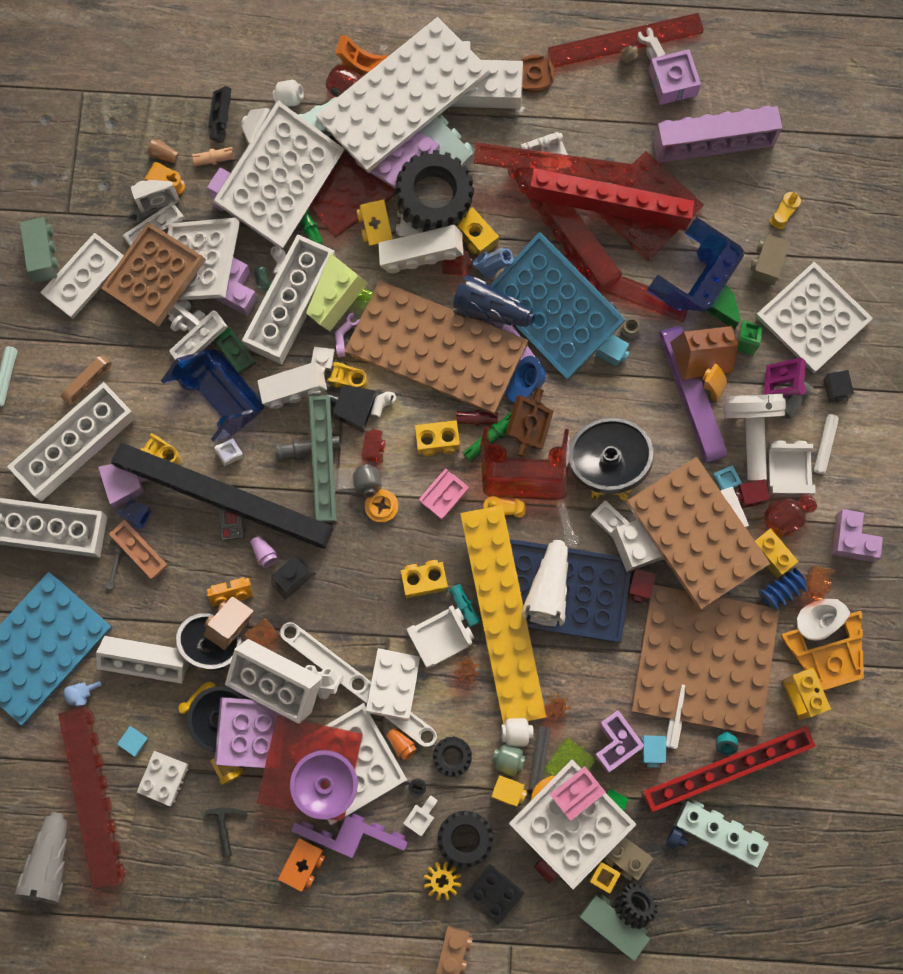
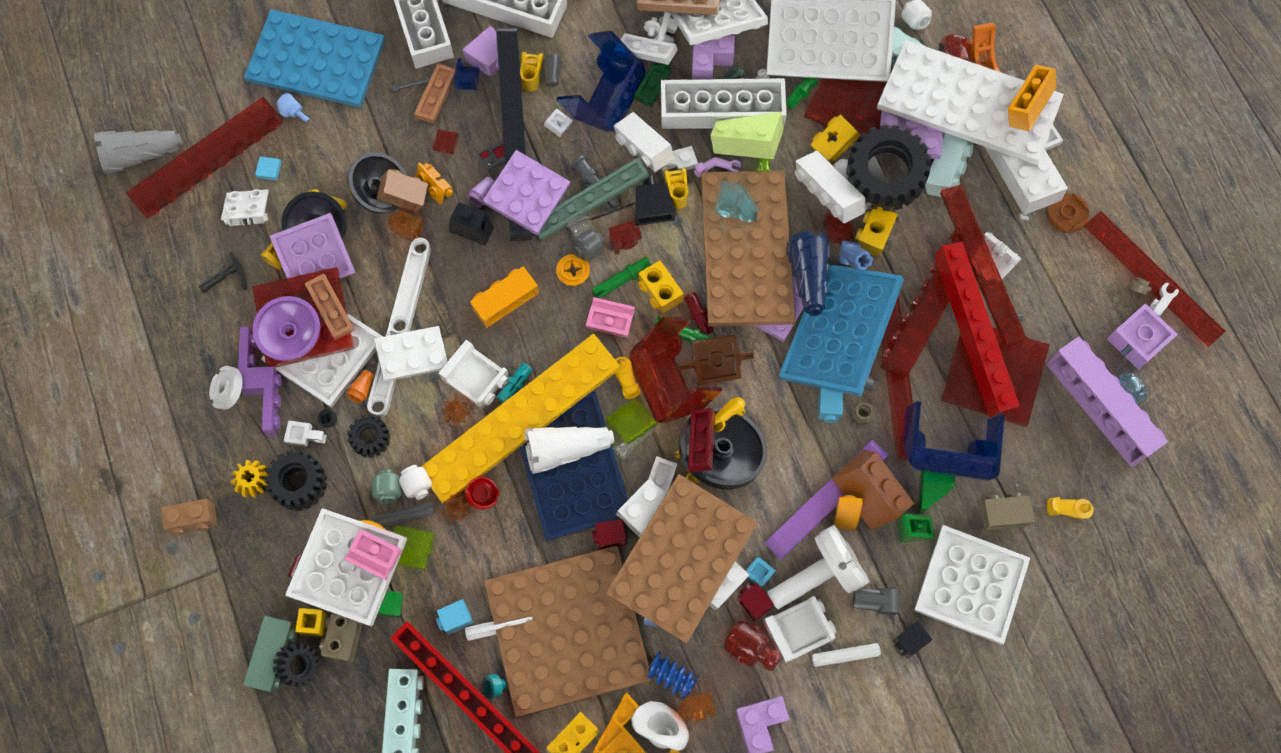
camera: 65 degrees right, 5 degrees down
(141, 659) = (337, 136): white brick -> none
(168, 431) = (552, 67): none -> dark grey cone
(192, 562) = (445, 141): none -> clear red tile
(273, 681) = (365, 248): white brick -> none
(291, 510) = (526, 192): none -> lavender plate
(302, 851) = (206, 346): orange brick -> none
(317, 737) = (329, 306): none -> nougat plate
(329, 682) = (385, 290): white hips -> none
(348, 859) = (226, 387): none -> white tile
(377, 577) = (504, 296): none -> light orange brick
(381, 401) = (669, 225): white arm -> none
(395, 333) = (736, 202): none -> clear light blue slope
(410, 461) = (629, 273): none -> green pin
(425, 585) = (517, 339): yellow brick -> none
(435, 42) = (1032, 97): none -> light orange brick
(494, 894) = (258, 531): black hinge -> none
(508, 791) = (354, 497): yellow brick -> none
(526, 378) = (760, 339): blue piece -> none
(548, 520) = (631, 421): none -> clear neon green piece
(554, 678) = (482, 493): none -> red hair
(580, 432) = (731, 408): none -> yellow piece
(601, 468) = (701, 440): none -> dark red tile
(623, 742) = (447, 583): lavender brick -> none
(675, 837) = (378, 676): dark blue tile -> none
(711, 105) = (1135, 385): none -> clear light blue head
(776, 552) = (704, 648): yellow brick -> none
(784, 373) = (894, 576): magenta plate -> none

